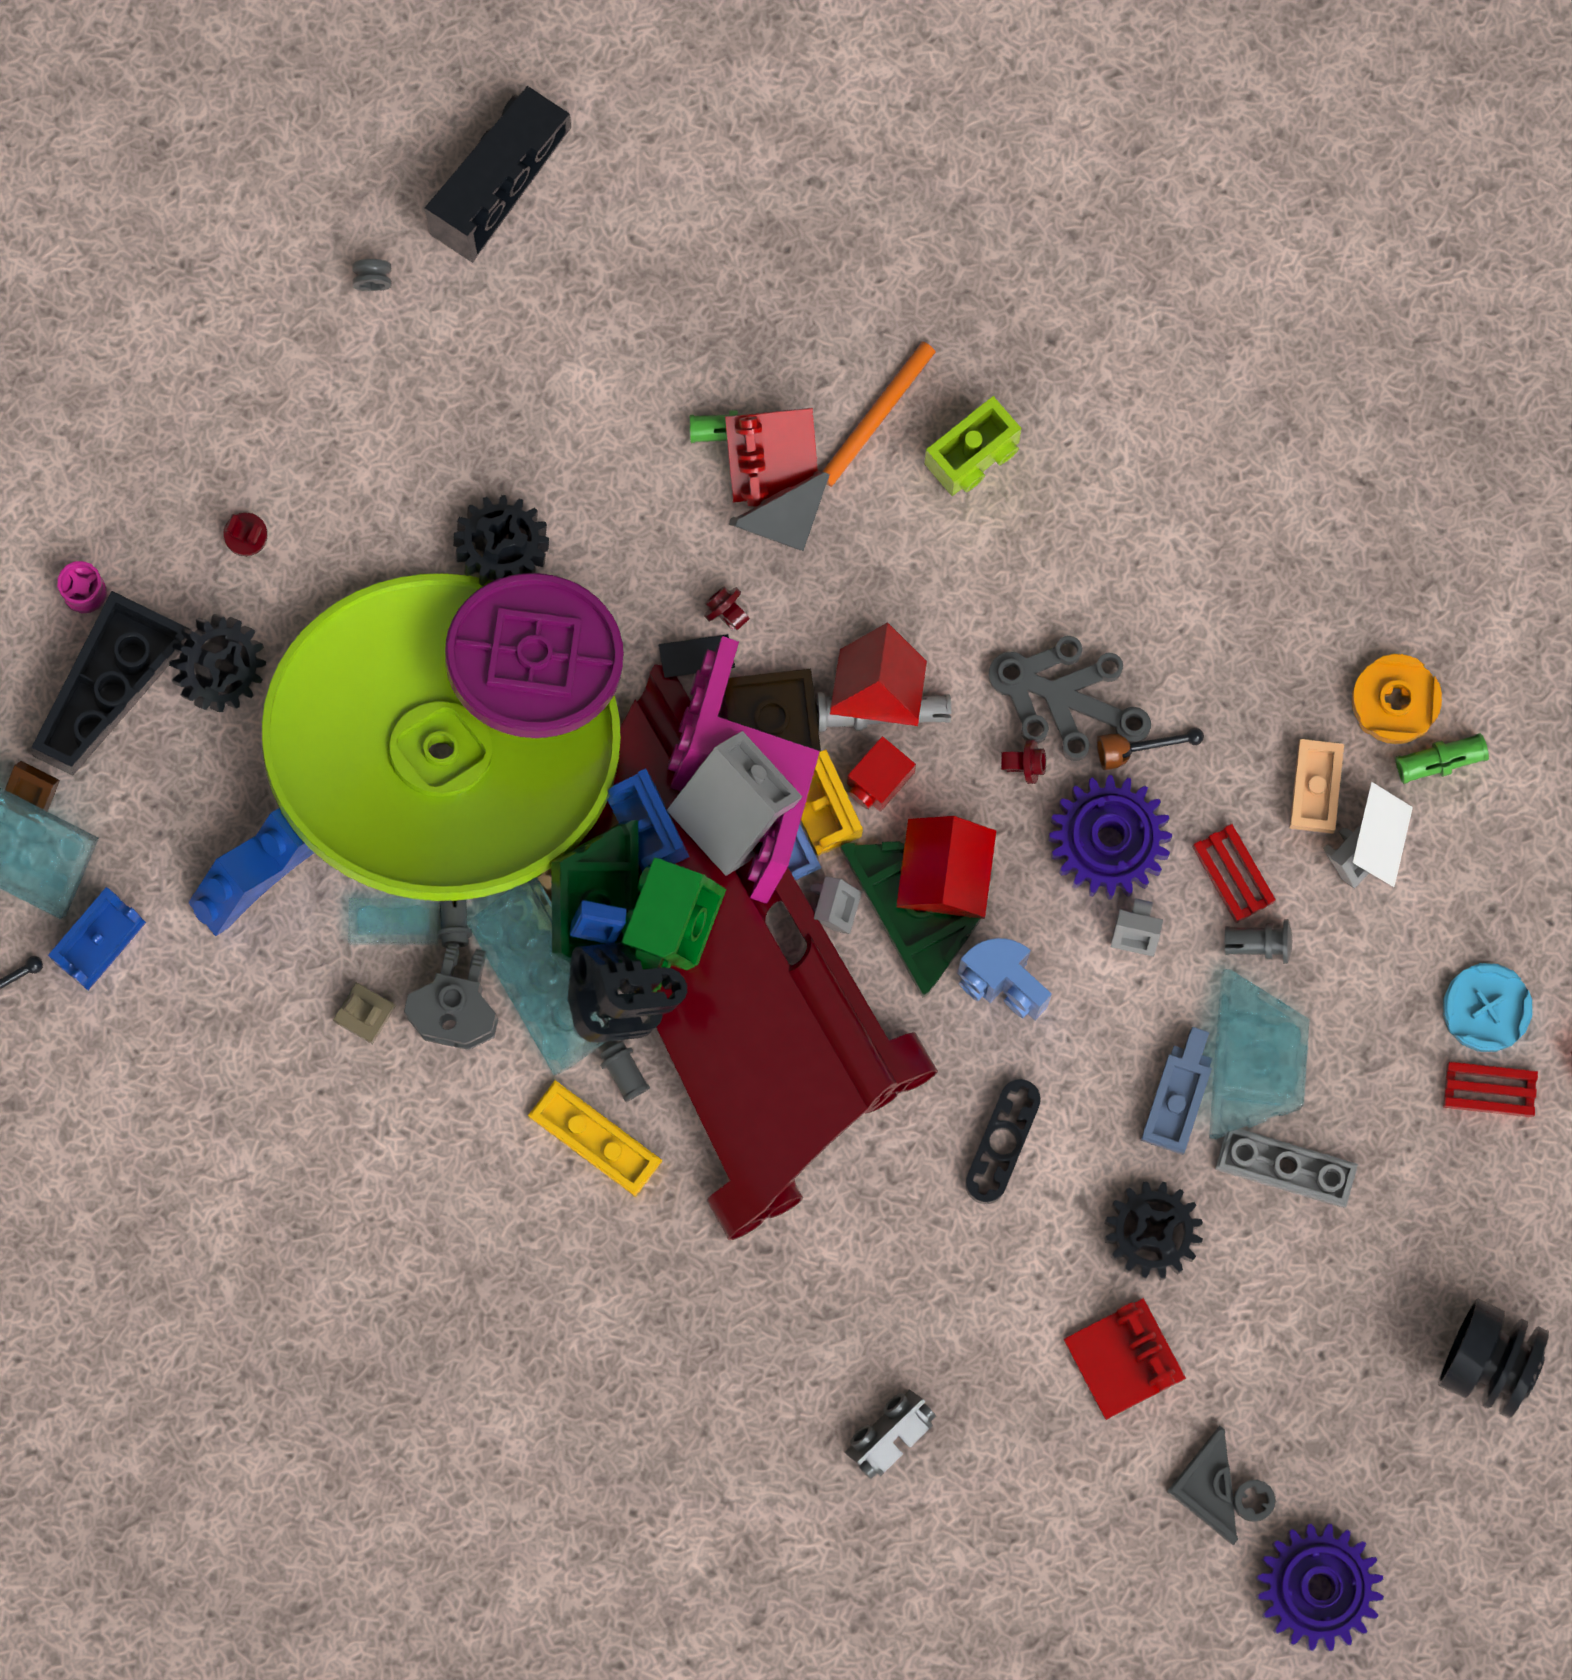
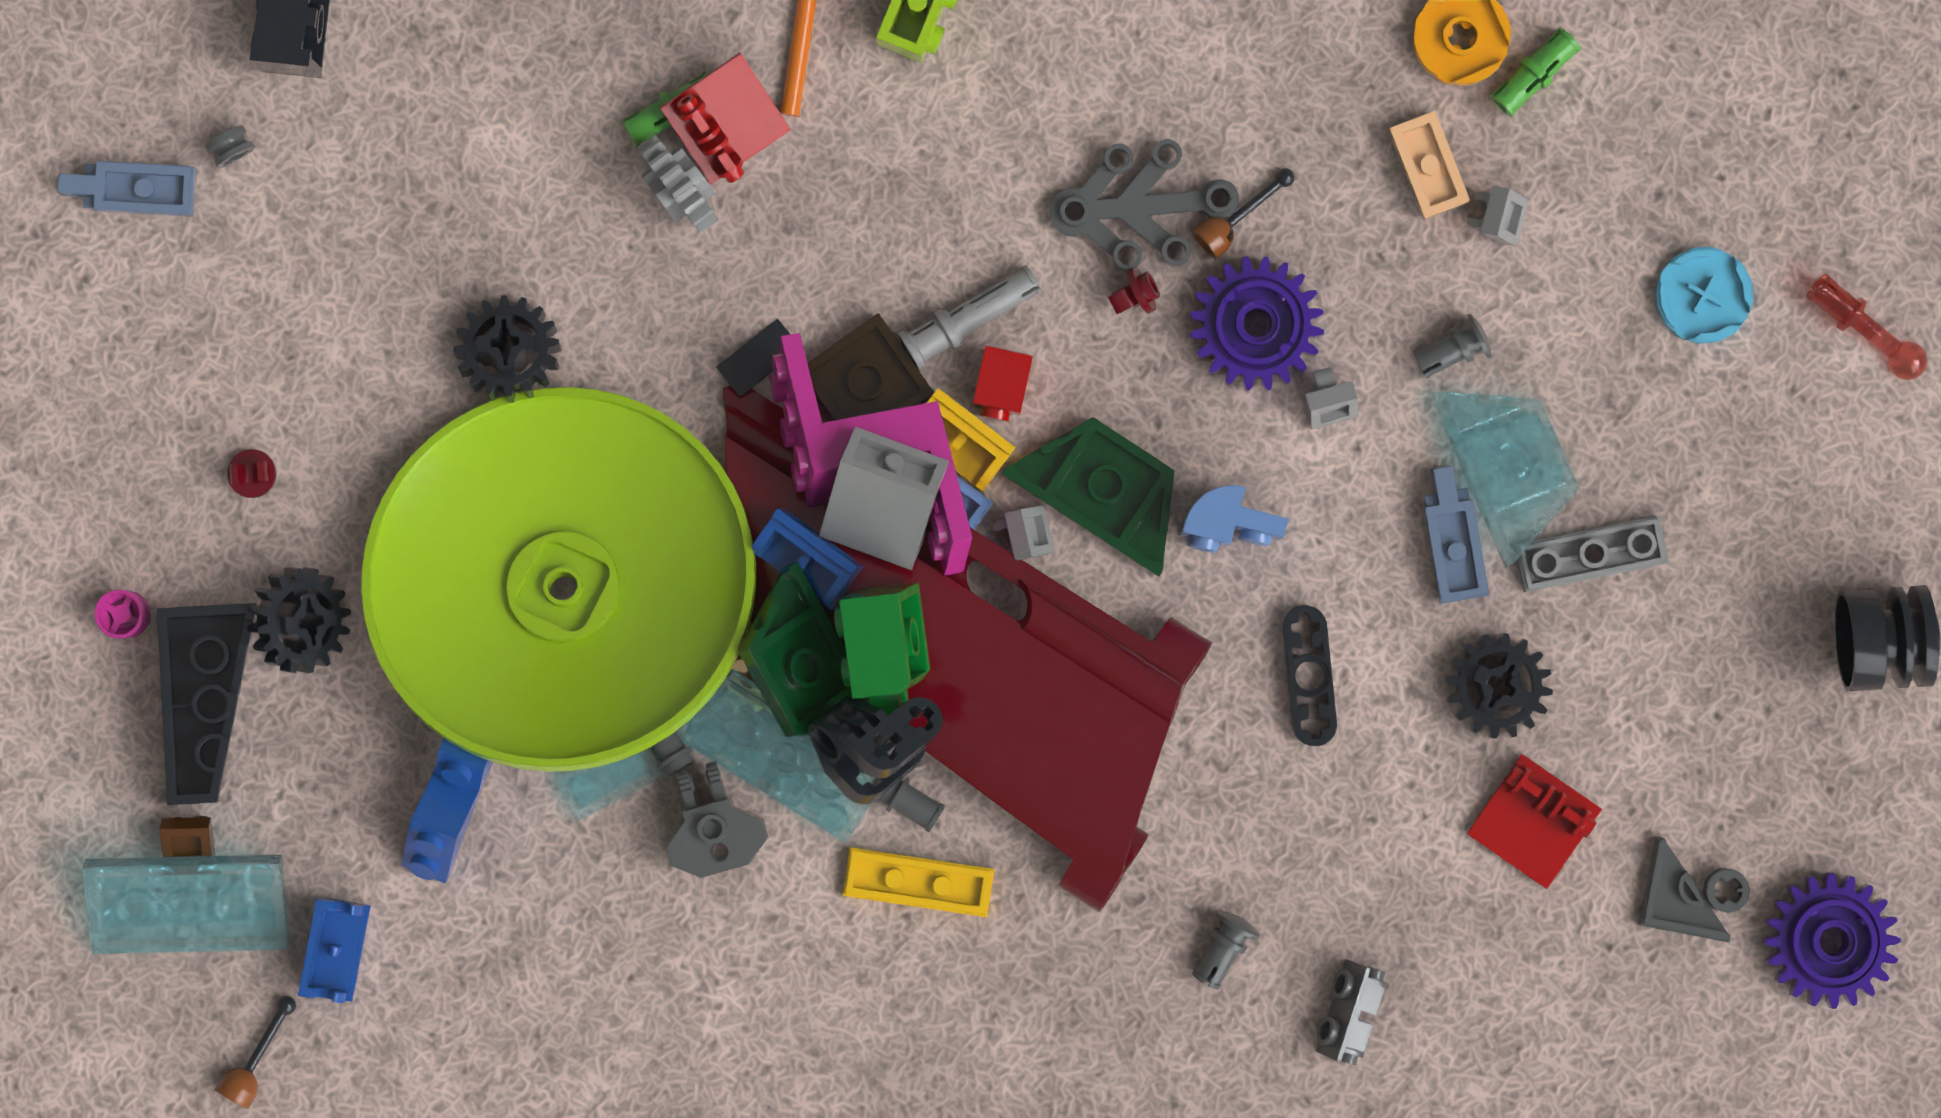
camera: 30 degrees left, 10 degrees up
(278, 267) = (133, 188): none -> sand blue hinge
(364, 1013) = (630, 881): dark tan tile -> none
(534, 655) = (605, 450): magenta plate -> none
(598, 922) = (817, 689): blue tile -> none
(706, 482) = (678, 184): none -> light grey gear
(723, 605) = (758, 295): dark red plate -> none
(787, 514) = (772, 171): dark grey tile -> none
(815, 1324) = (1227, 944): none -> dark grey pin
(879, 679) = (951, 289): red slope -> none
(946, 866) = (1116, 441): red slope -> none
(1216, 841) = (1427, 315): red tile -> none
(1382, 834) = (1519, 182): white sticker -> none
(1528, 1093) = (1787, 358): red tile -> none

